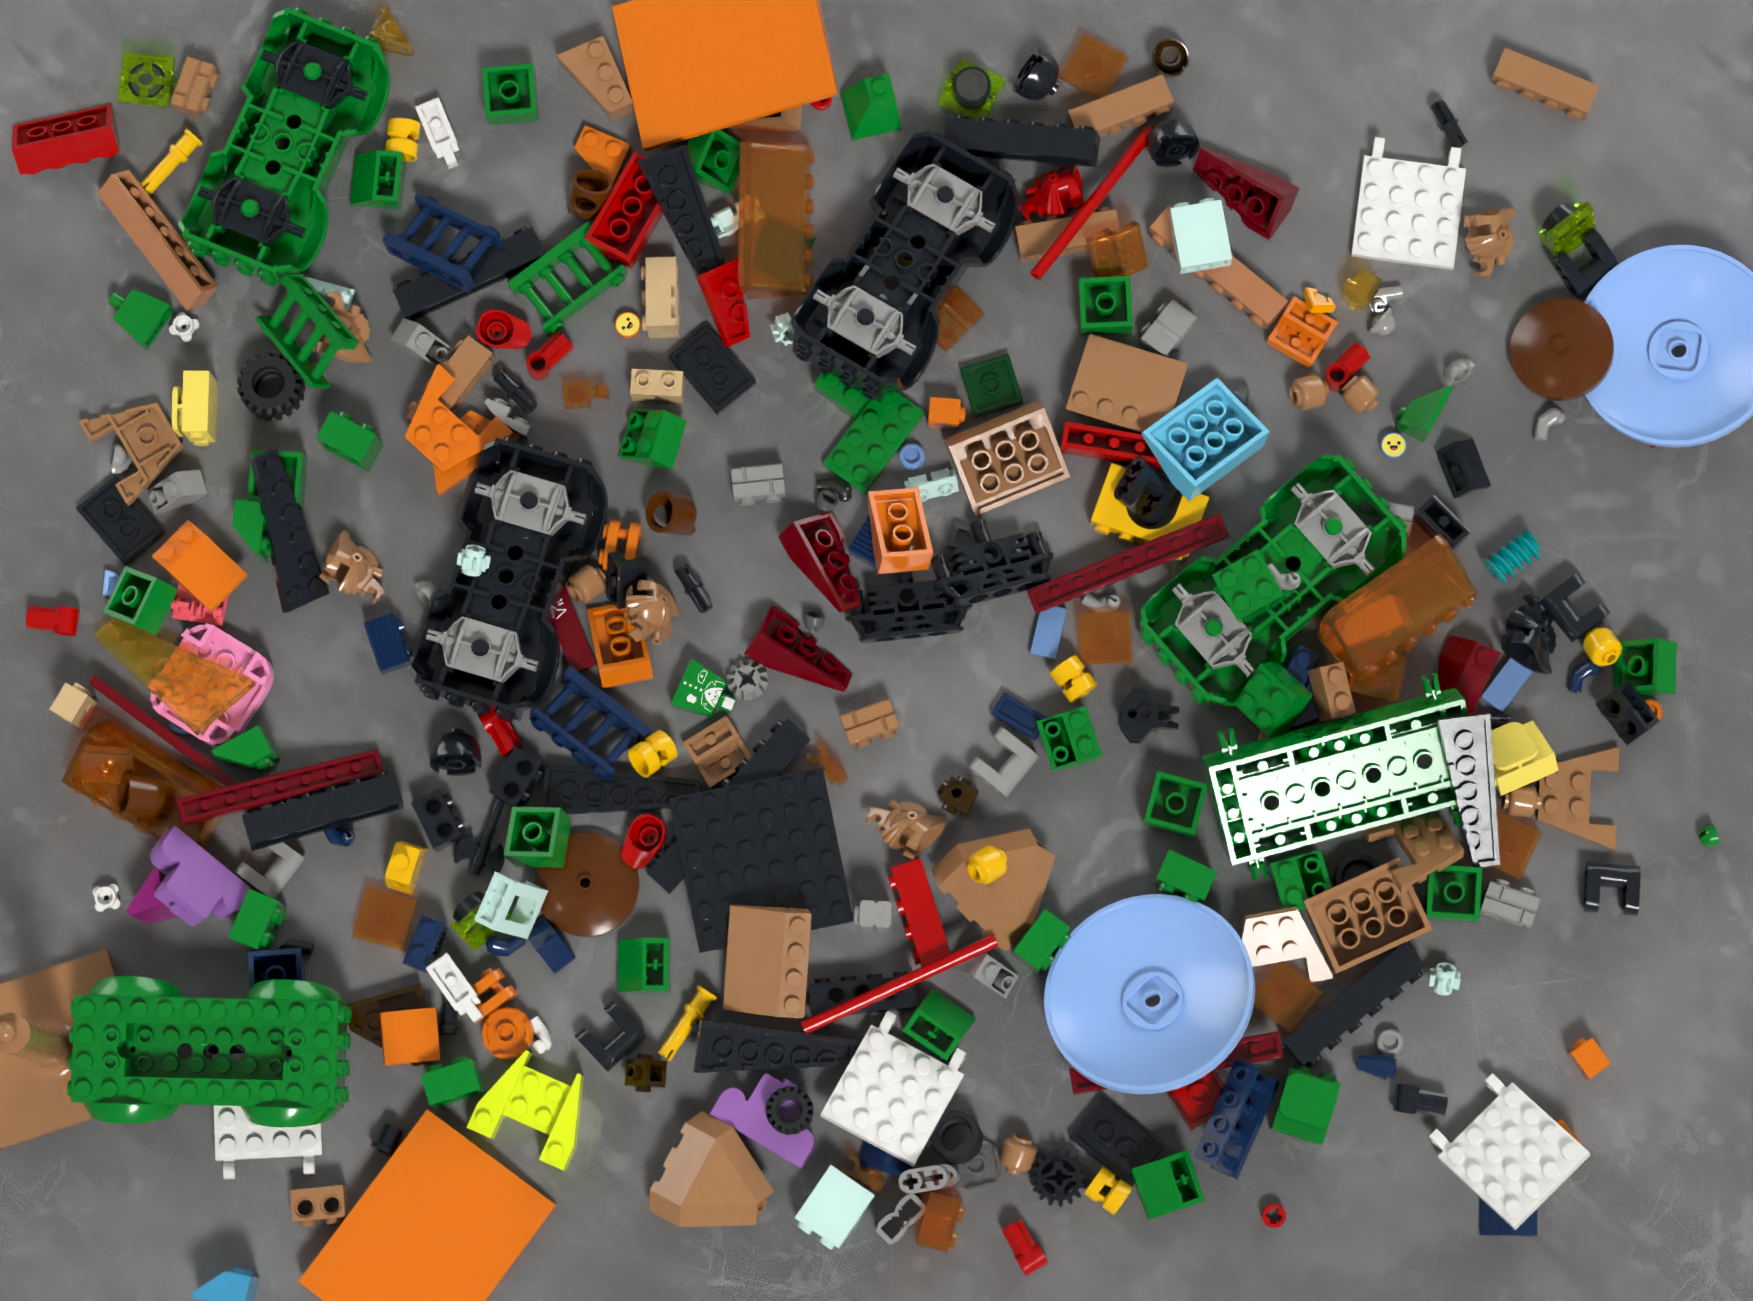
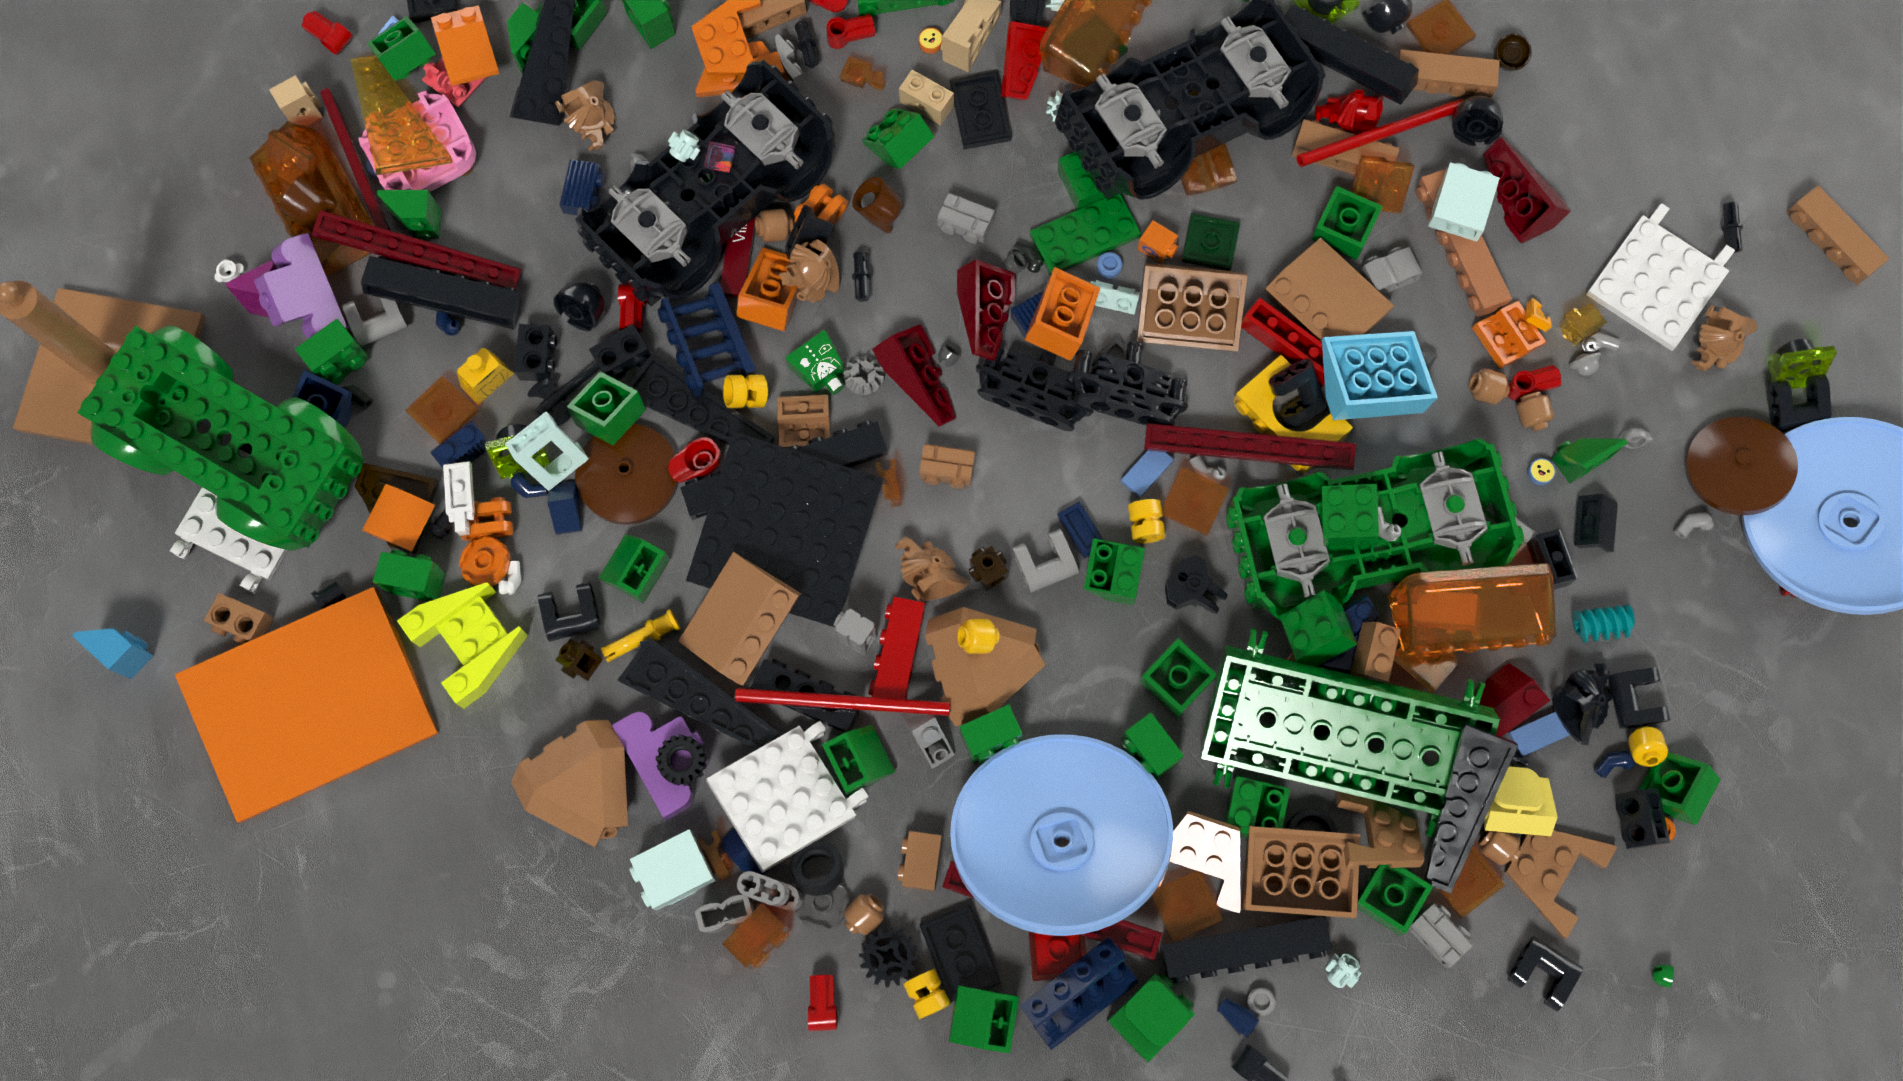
camera: 25 degrees right, 5 degrees down
(510, 552) = (719, 157): none -> clear pink tile
(1041, 1083) = (921, 861): none -> medium nougat brick

